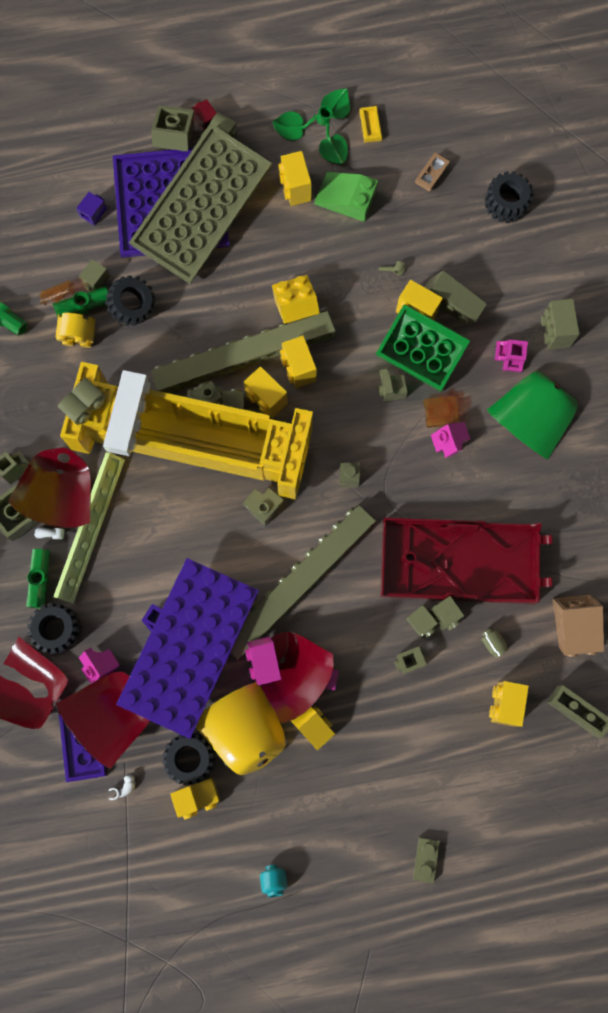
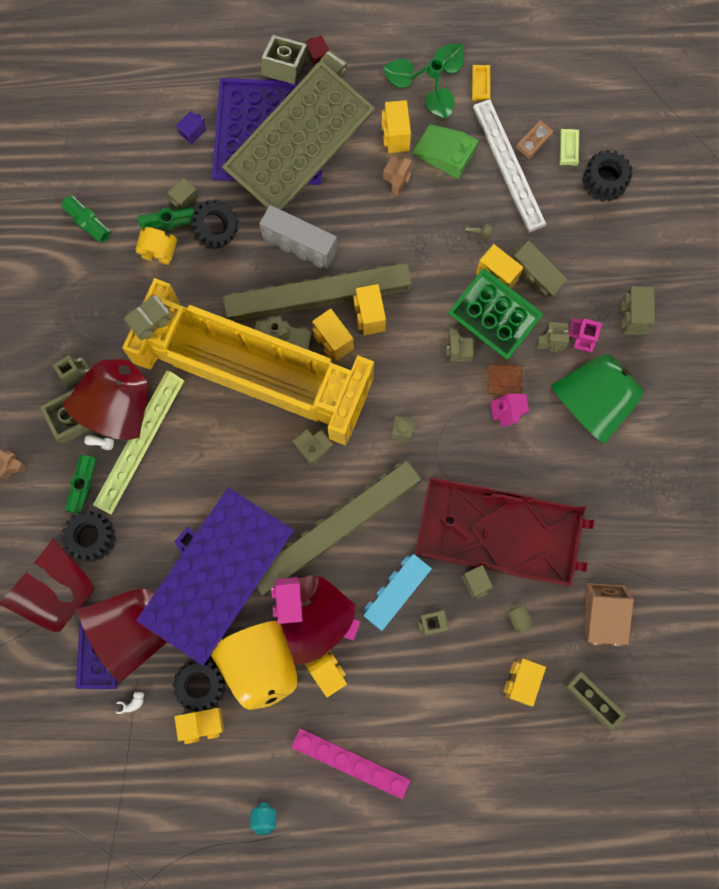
camera: 10 degrees right, 0 degrees up
(56, 292) = (143, 205): clear orange piece -> none
(97, 664) = (125, 578): dark pink brick -> none
(126, 413) = (190, 336): white brick -> none
(216, 301) = (298, 237): none -> light grey brick
(295, 299) = (377, 246): yellow brick -> none
(303, 224) = (397, 173): none -> medium nougat brick
(351, 812) = (351, 763): none -> dark pink plate
(370, 635) = (397, 592): none -> medium azure brick
(411, 201) = (509, 166): none -> white tile
(422, 622) = (451, 586): olive brick -> none
(426, 860) = (417, 823): olive plate -> none
(467, 175) = (569, 147): none -> yellowish green tile
(483, 362) = (555, 338): none -> olive brick

